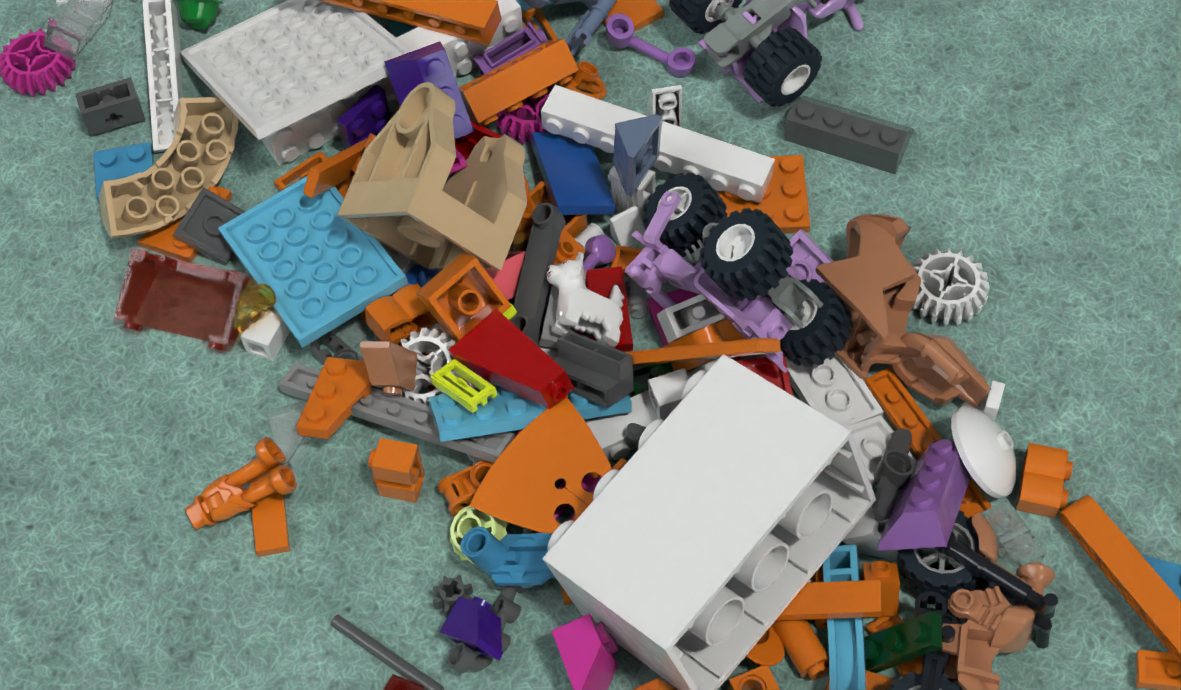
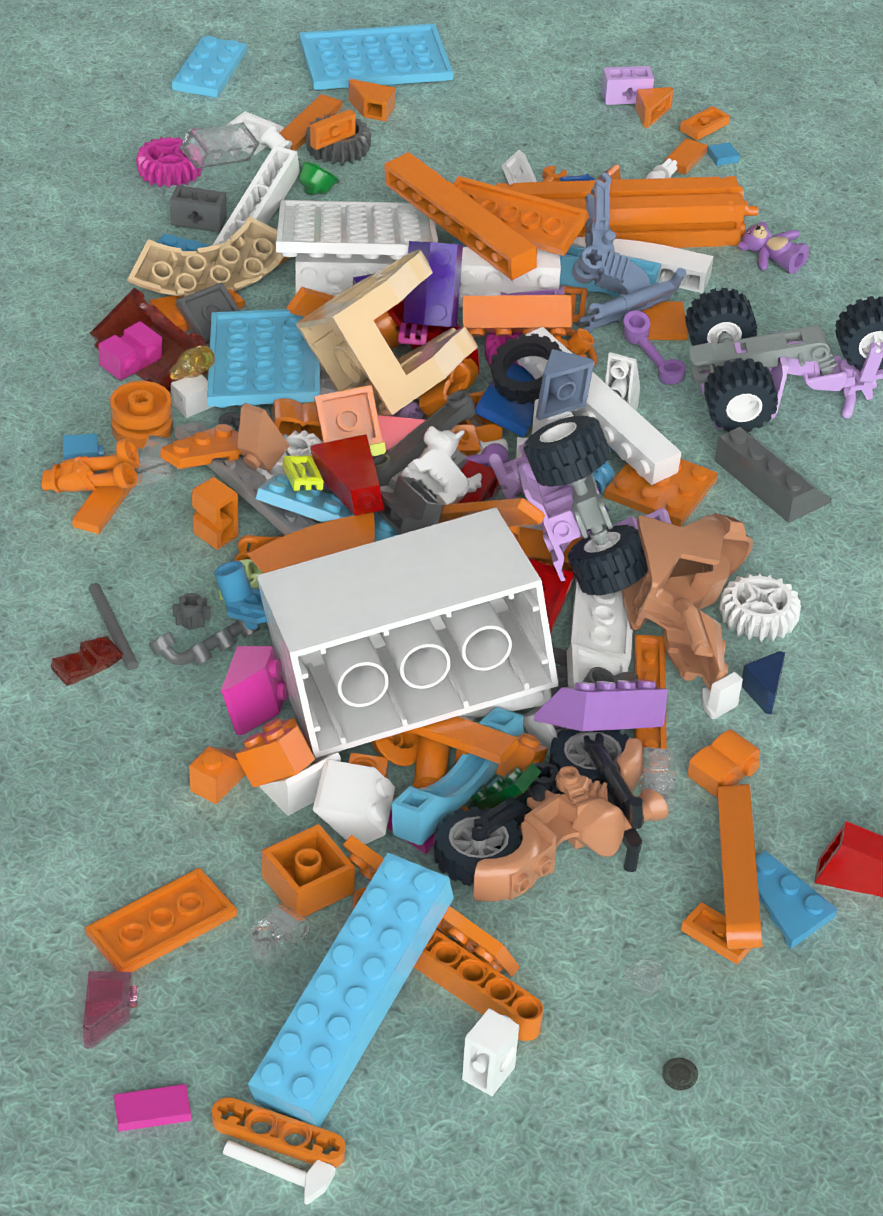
camera: 25 degrees right, 15 degrees down
(169, 316) = (130, 352): none -> dark pink brick
(207, 464) = (81, 446): none -> dark azure brick
(235, 388) = (141, 411): none -> orange wheel
(475, 626) = (188, 628): dark purple slope -> none
(567, 114) = (510, 353): none -> black tyre
(985, 450) = (683, 711): white dish -> none
(1012, 367) = (762, 679): none -> dark blue slope

